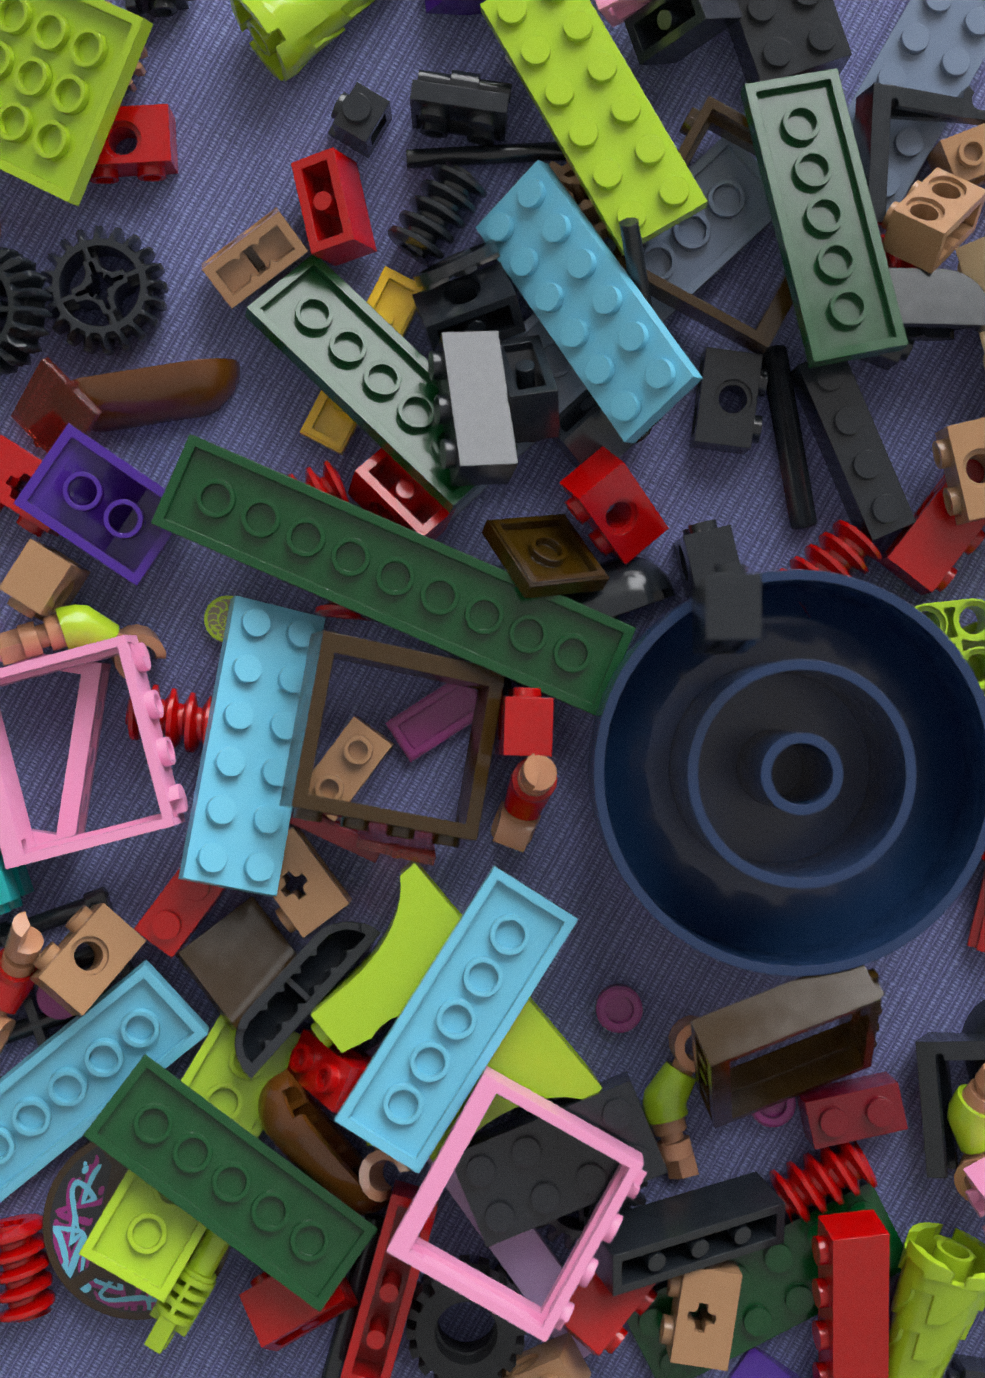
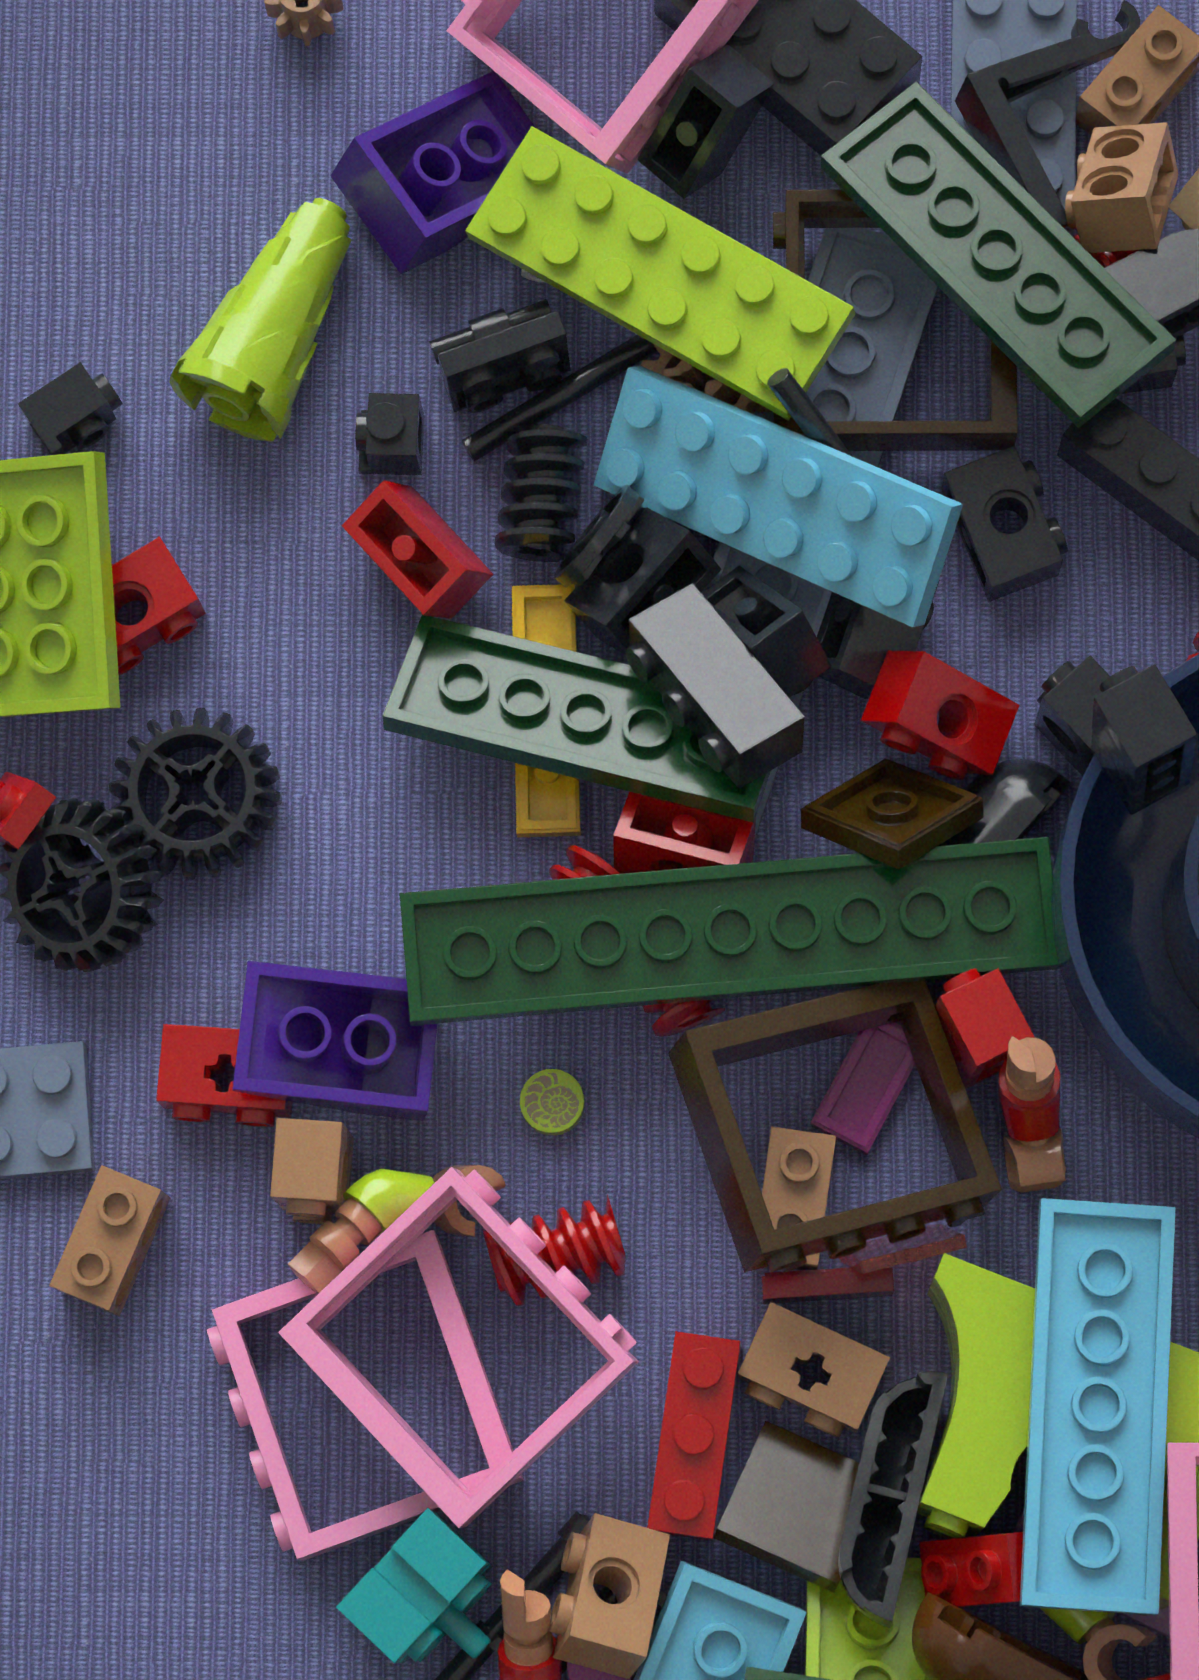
camera: 20 degrees left, 10 degrees down
(51, 404) = (209, 962): clear red piece -> none
(161, 392) = (311, 886): reddish brown brick -> none
(235, 815) = (667, 1233): medium azure plate -> none
(253, 258) = (355, 657): medium nougat brick -> none
(789, 438) = (1102, 528): black axle -> none

